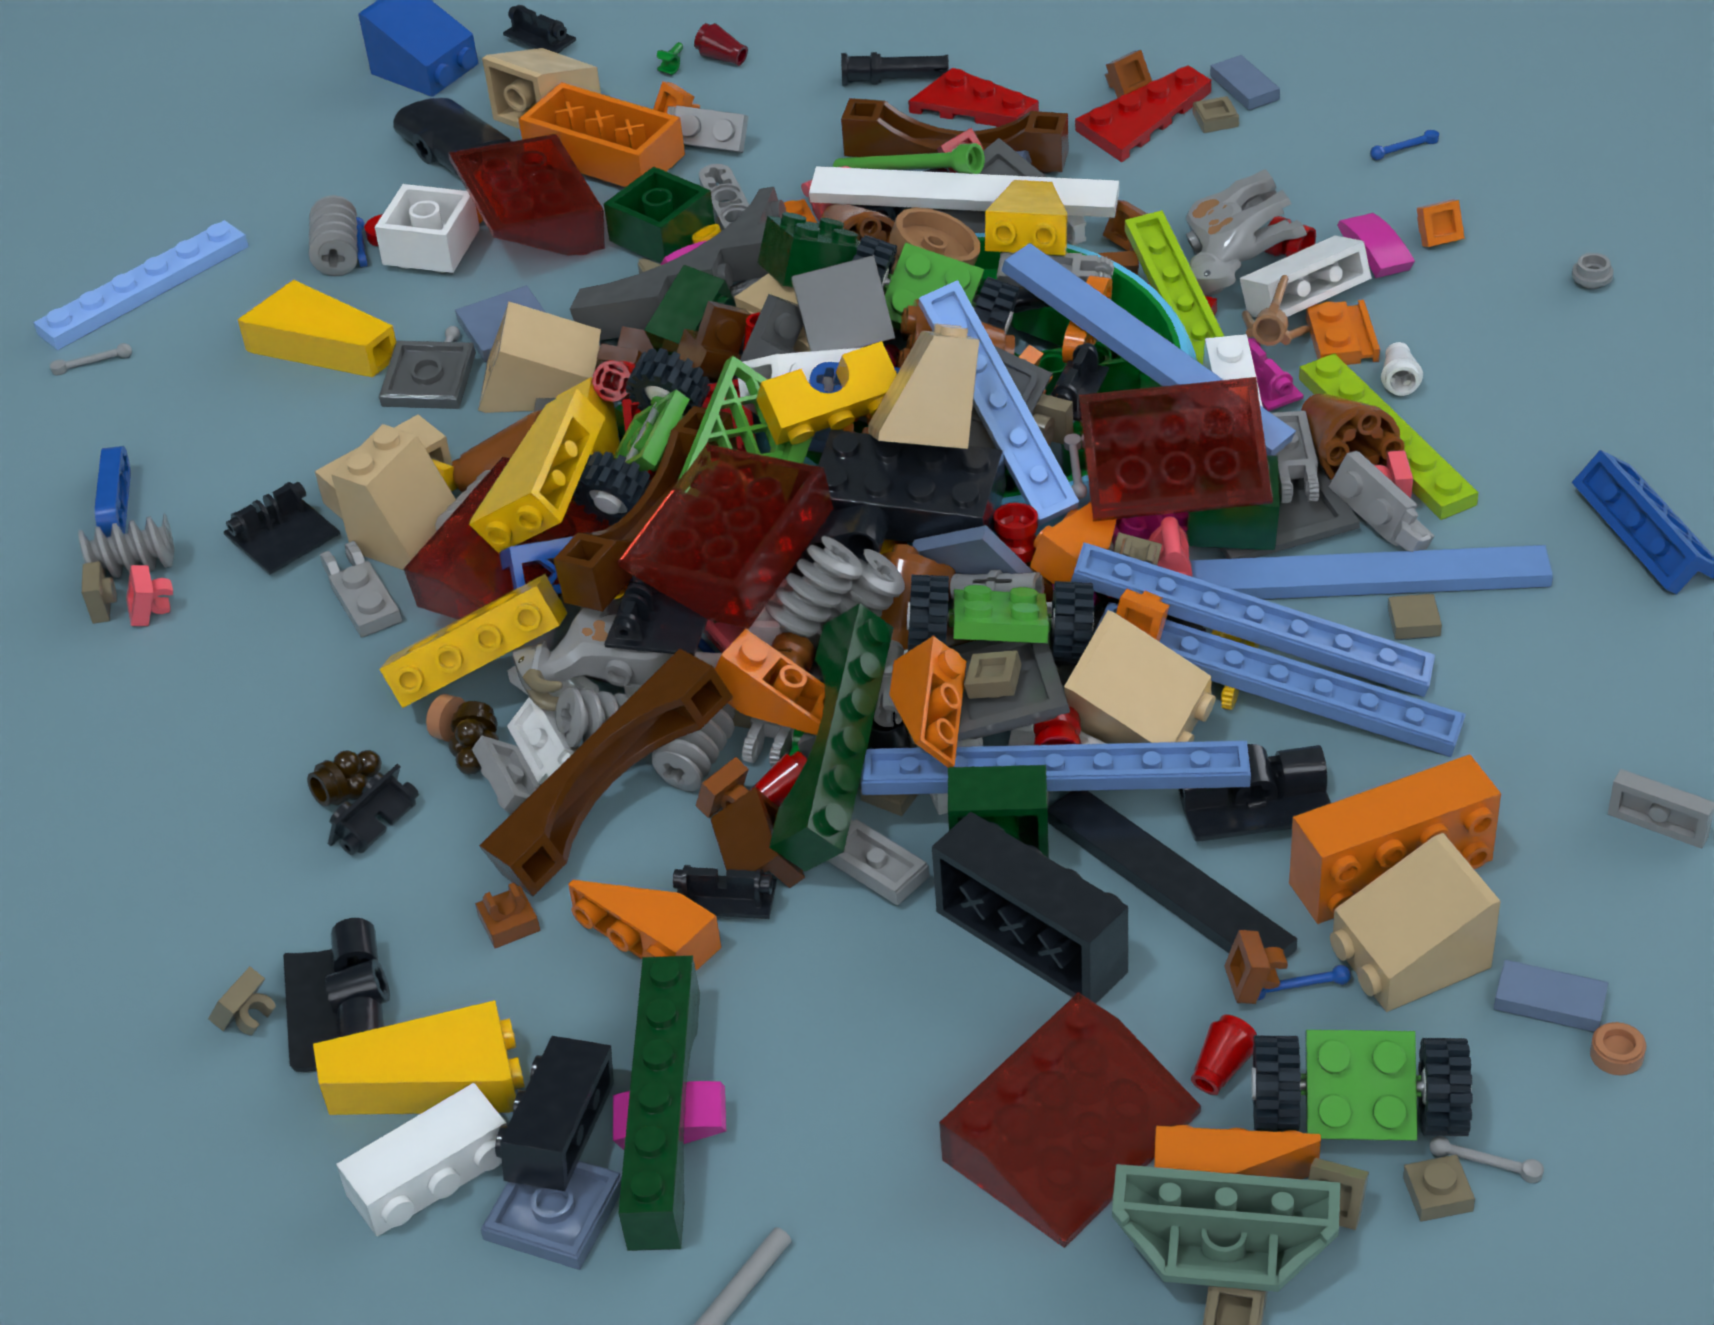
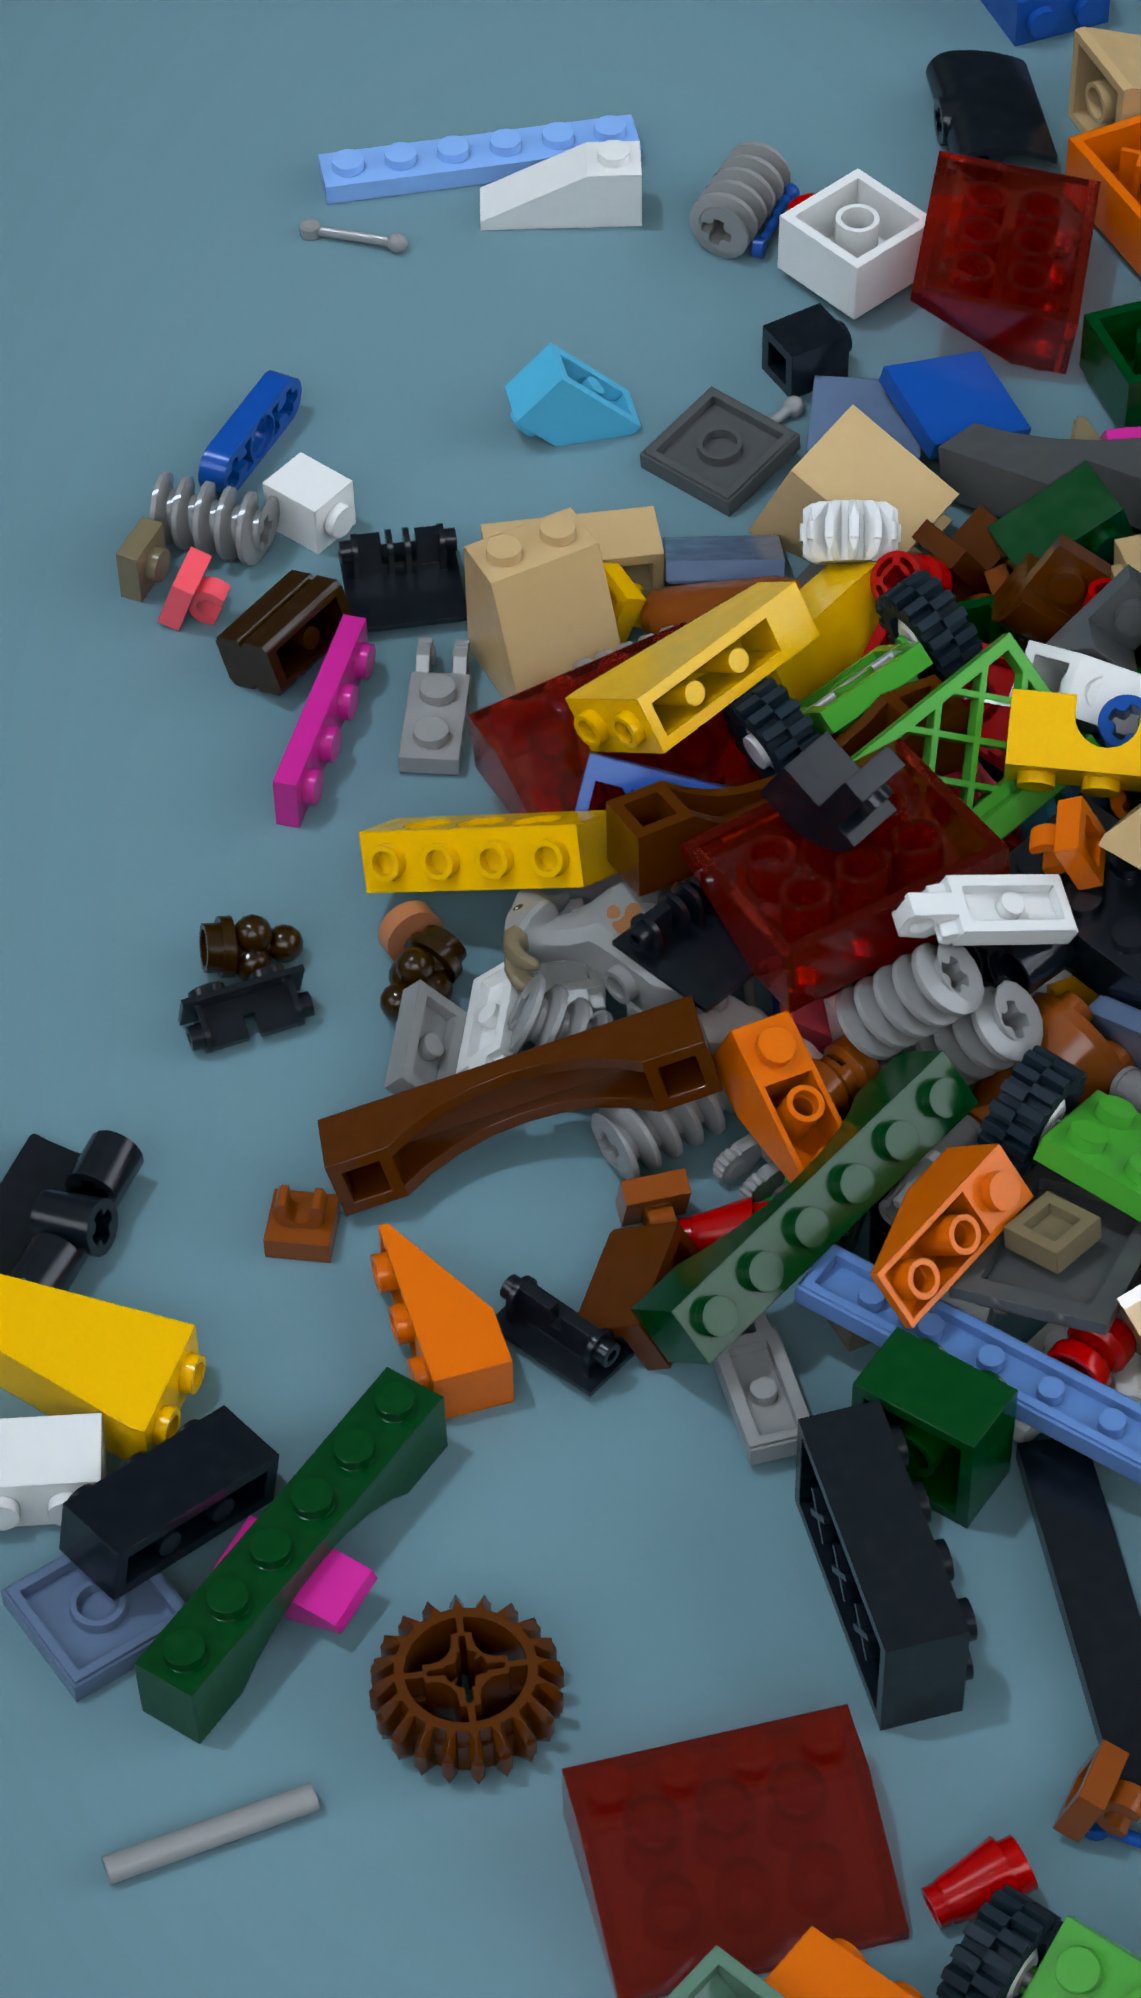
camera: 30 degrees right, 5 degrees up
(189, 510) = (312, 502): none -> white brick
(219, 274) = (574, 189): none -> white slope
(229, 589) = (283, 632): none -> dark brown brick
(298, 638) = (318, 730): none -> dark pink plate
(310, 386) = (569, 401): none -> medium azure slope
(317, 331) = (628, 326): yellow slope -> none
(437, 297) = (805, 346): none -> black brick
(483, 425) = (722, 558): none -> sand blue tile
(548, 285) = (949, 395): none -> blue tile
(561, 368) = (849, 531): none -> white gear
(699, 487) = (831, 797): none -> black brick
(829, 1135) = (423, 1700): none -> reddish brown gear
(836, 509) = (989, 911): none -> white hinge
(855, 453) = (1072, 844): none -> orange tile

